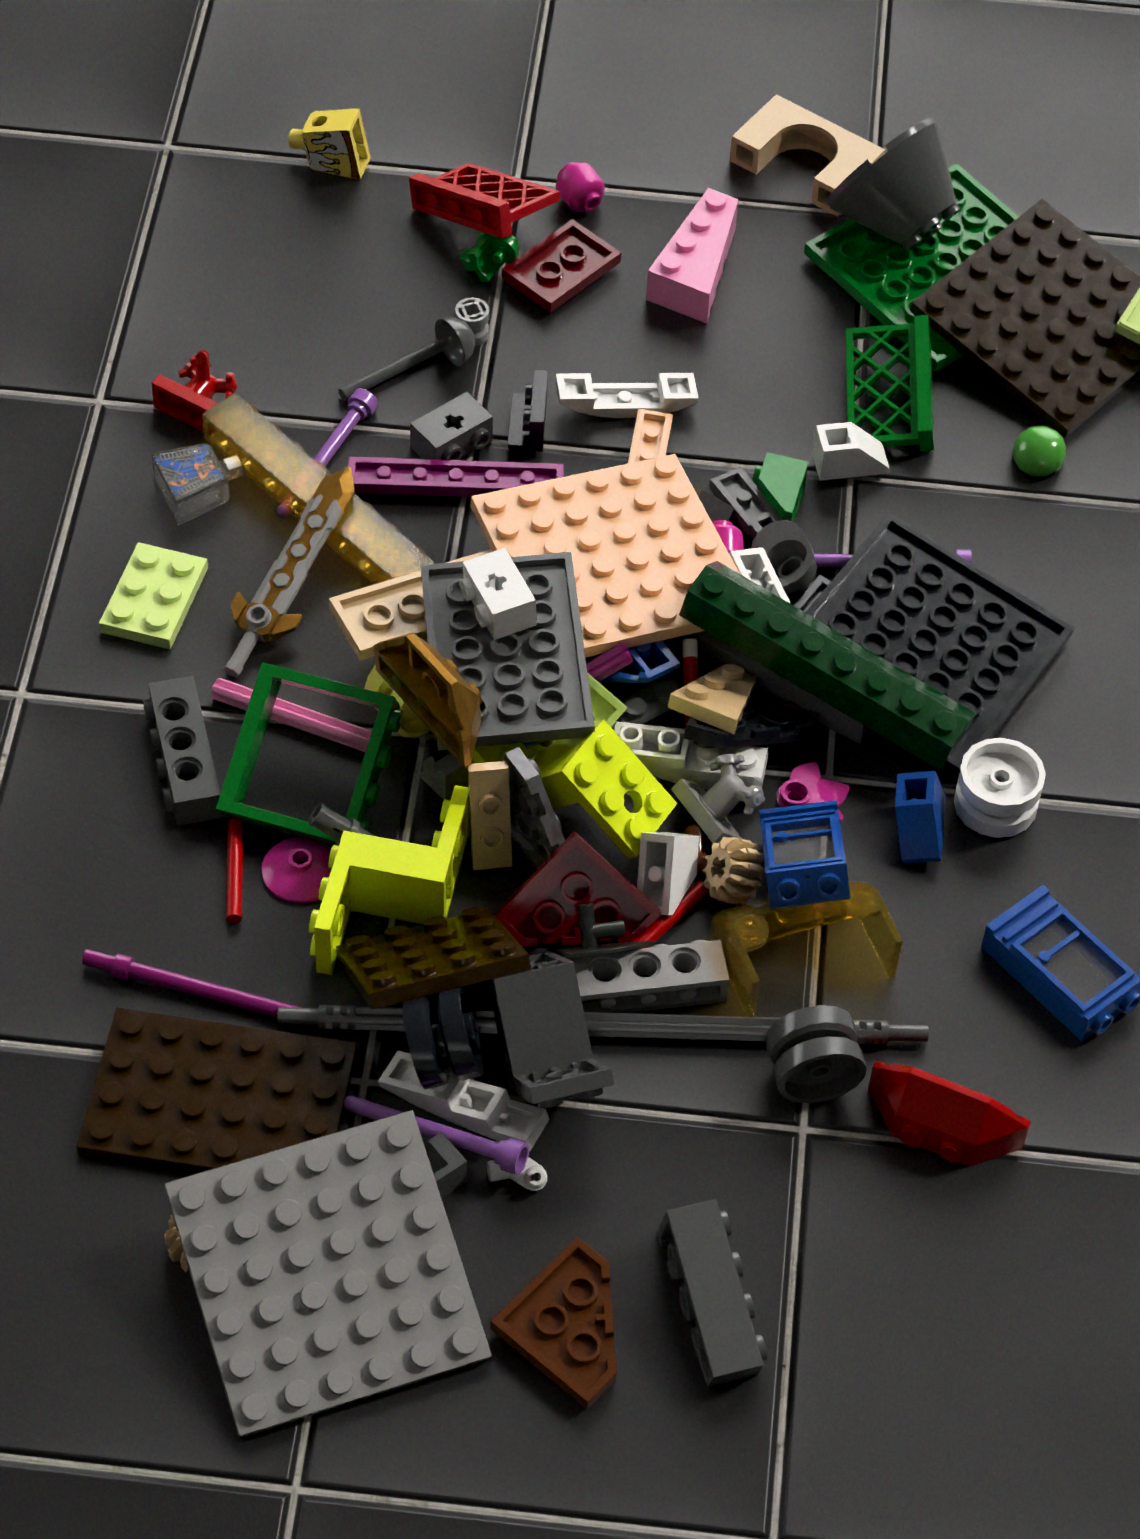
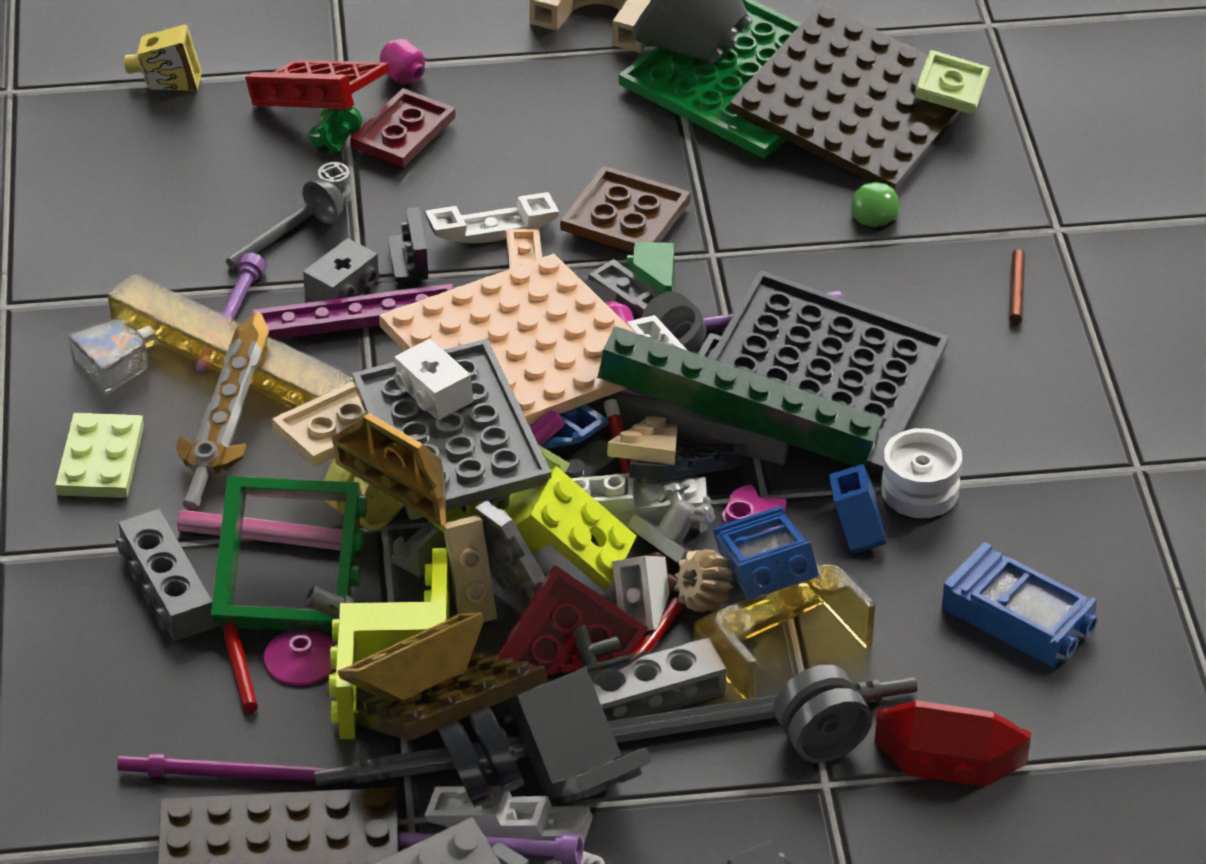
camera: 10 degrees left, 10 degrees down
(195, 397) = (91, 290): red piece -> none
(403, 918) = (418, 661): none -> pearl gold wedge
(694, 258) = (521, 105): bright pink wedge -> none
(769, 408) = (624, 209): none -> plate
(847, 452) = (704, 232): white slope -> none
(919, 376) = (755, 172): green fence -> none

